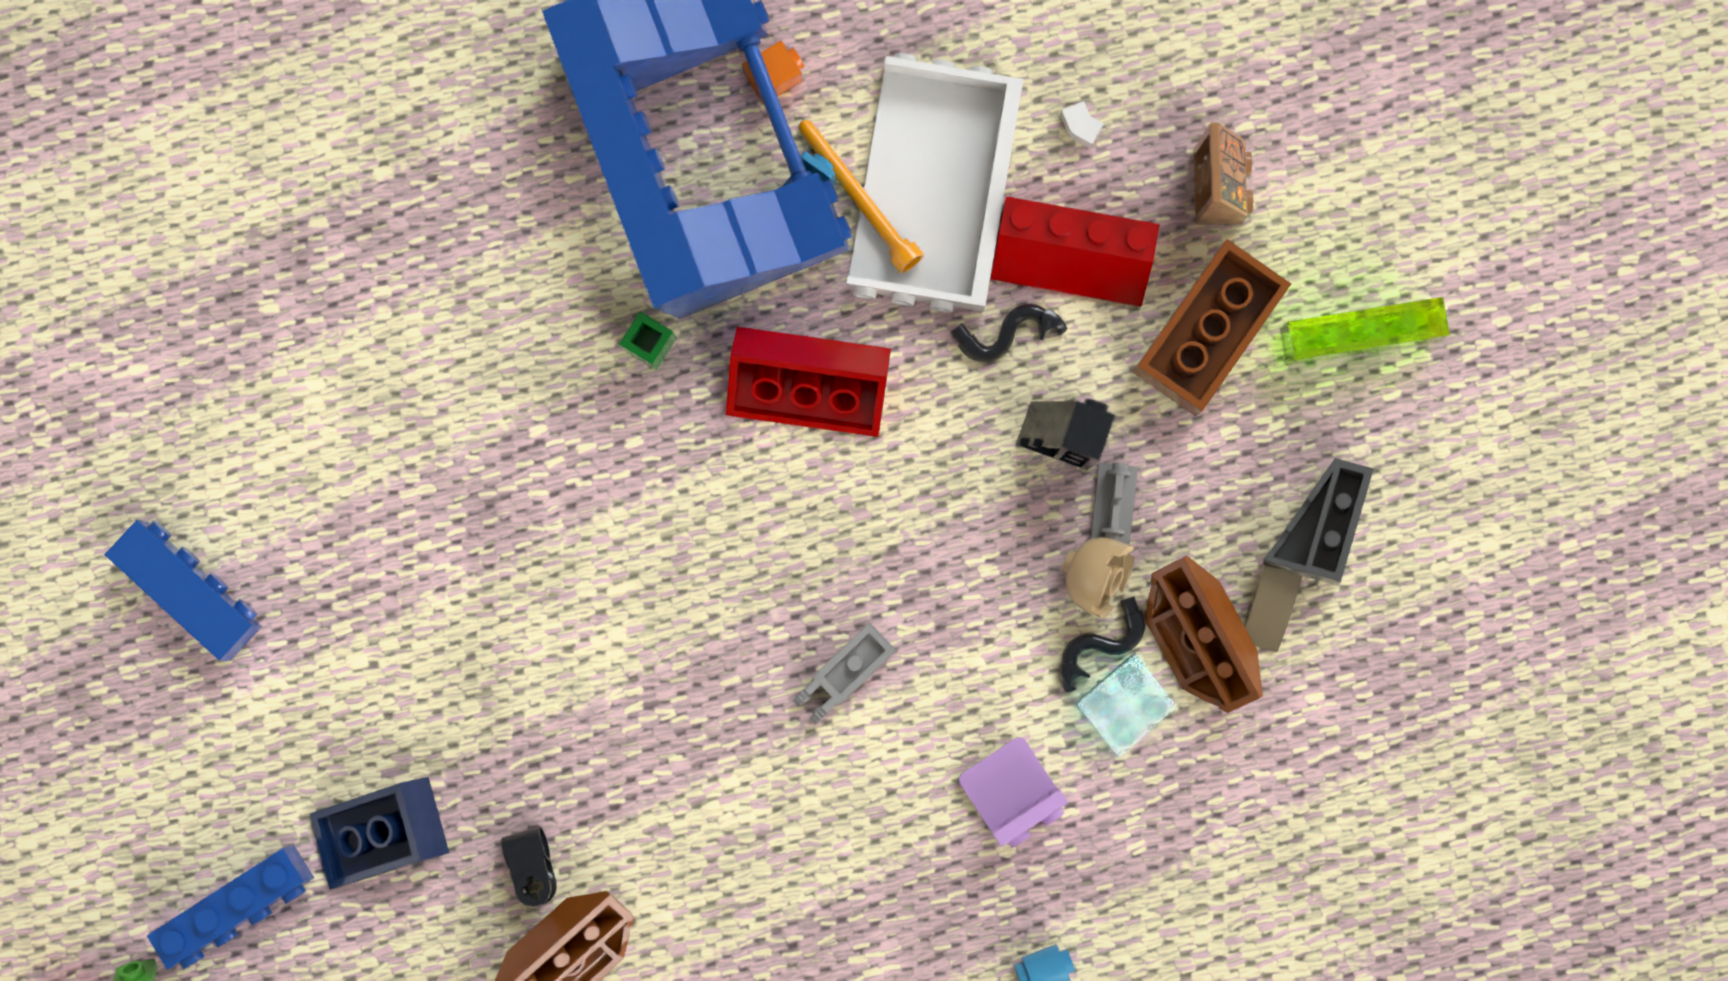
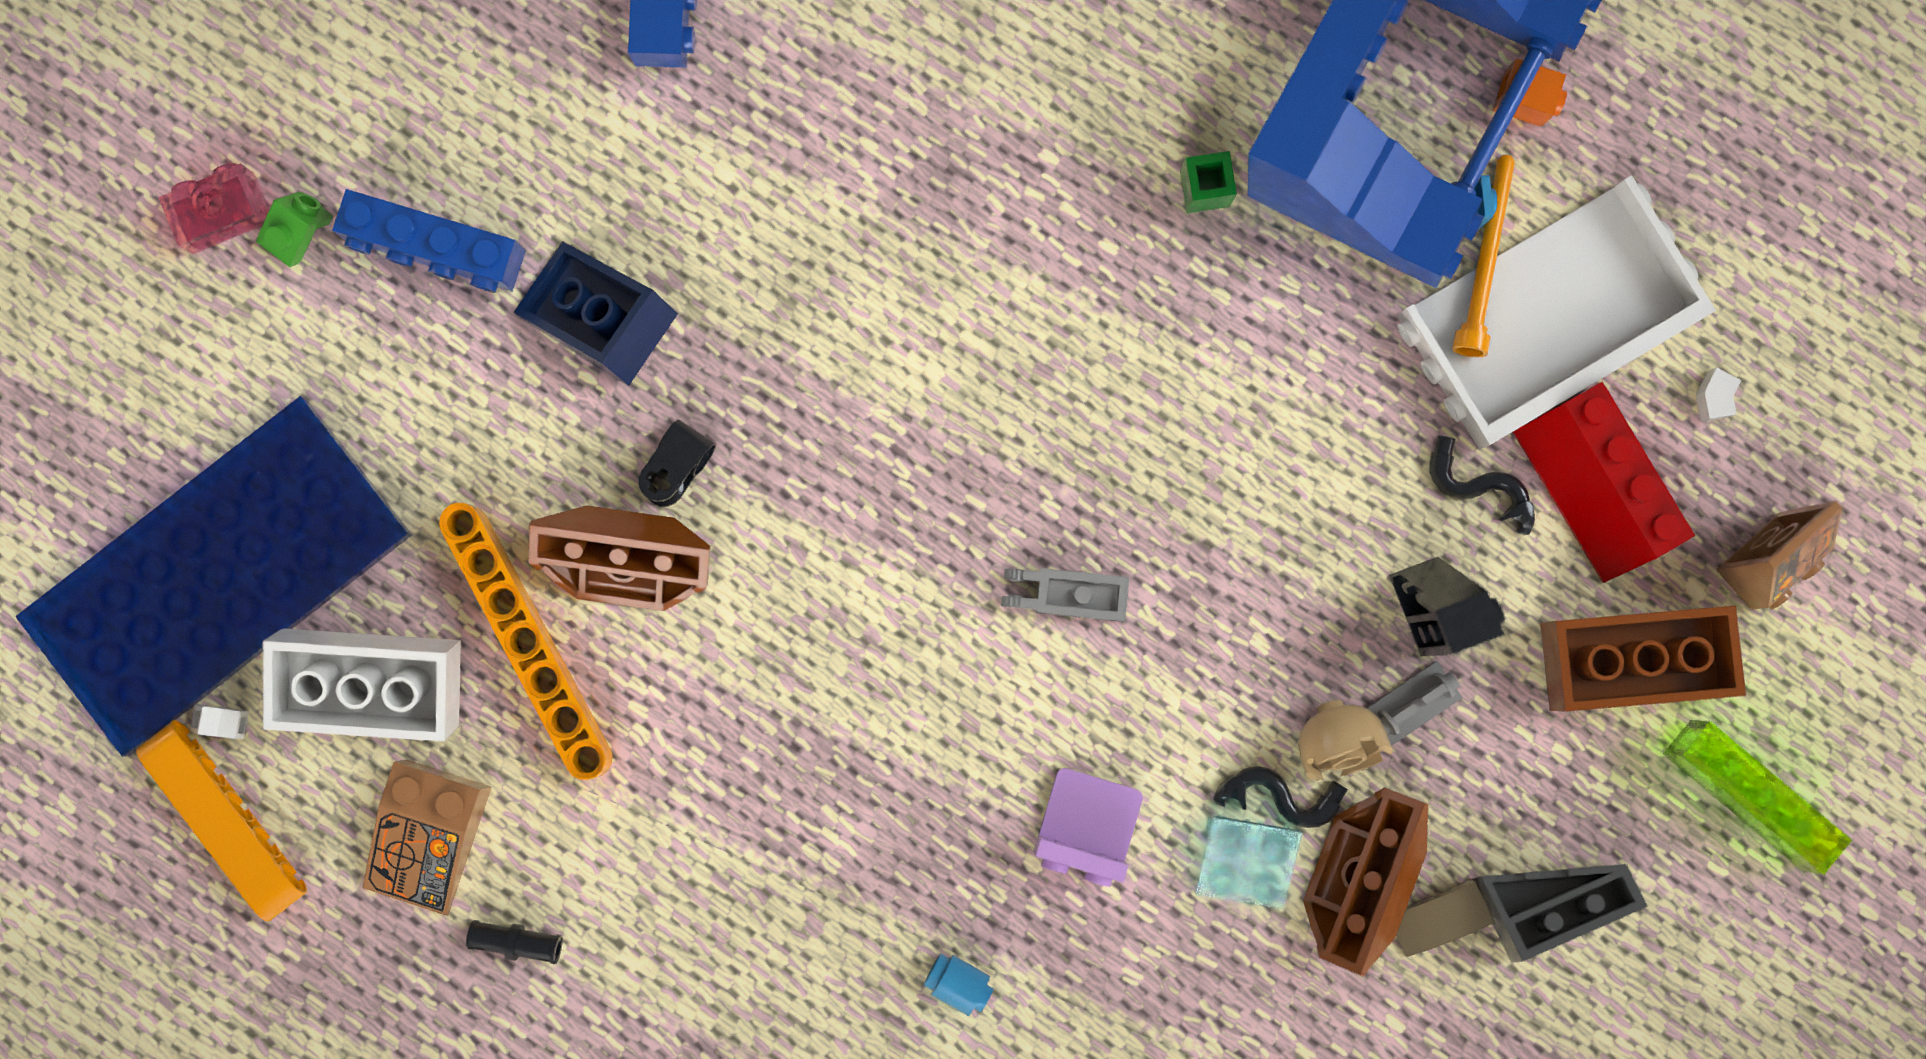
camera: 50 degrees right, 0 degrees up
(807, 381) = (1289, 348): red slope -> none

